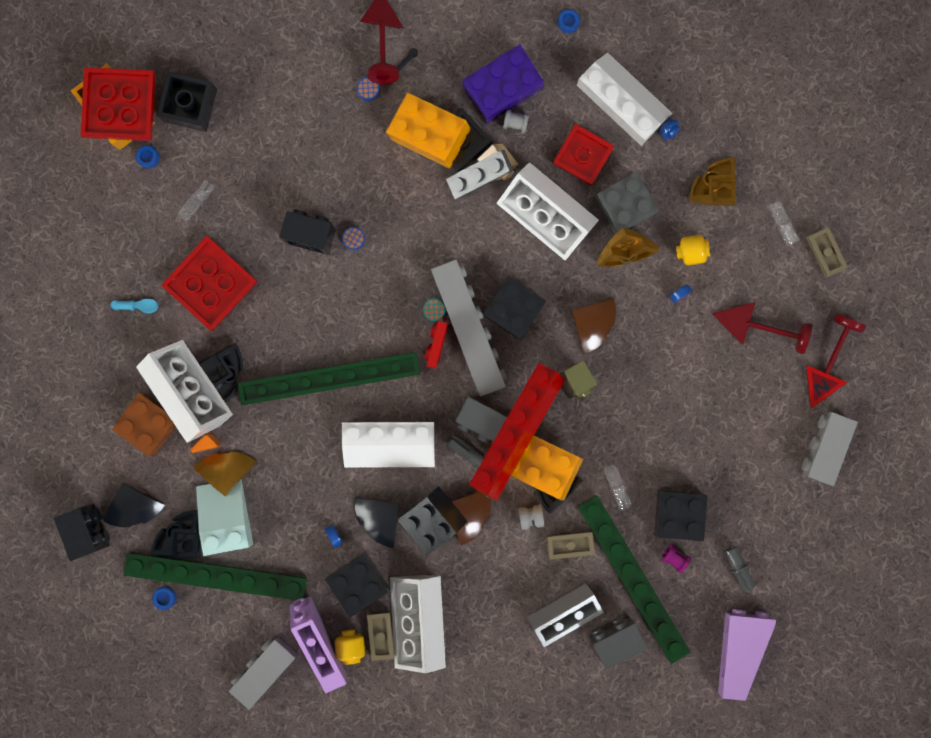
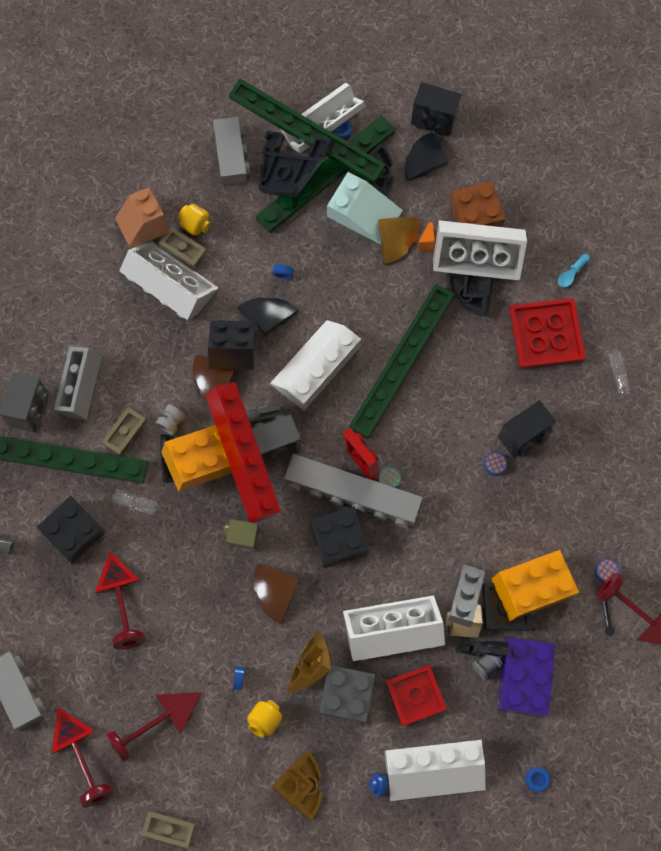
camera: 125 degrees right, 15 degrees down
(168, 625) = (332, 106): none -> white fence
(195, 622) = (305, 130): none -> dark green plate
(246, 607) = (289, 173): none -> black wing
(316, 644) = (218, 197): lavender slope -> none
(357, 584) = (233, 260): black brick -> none
(386, 690) = (141, 218): none -> nougat slope
(506, 130) = (490, 648): none -> black brick
(675, 558) = (42, 499): magenta bush -> none
(683, 451) = (114, 576): none -> dark red piece
(783, 223) = (222, 814): clear axle -> none

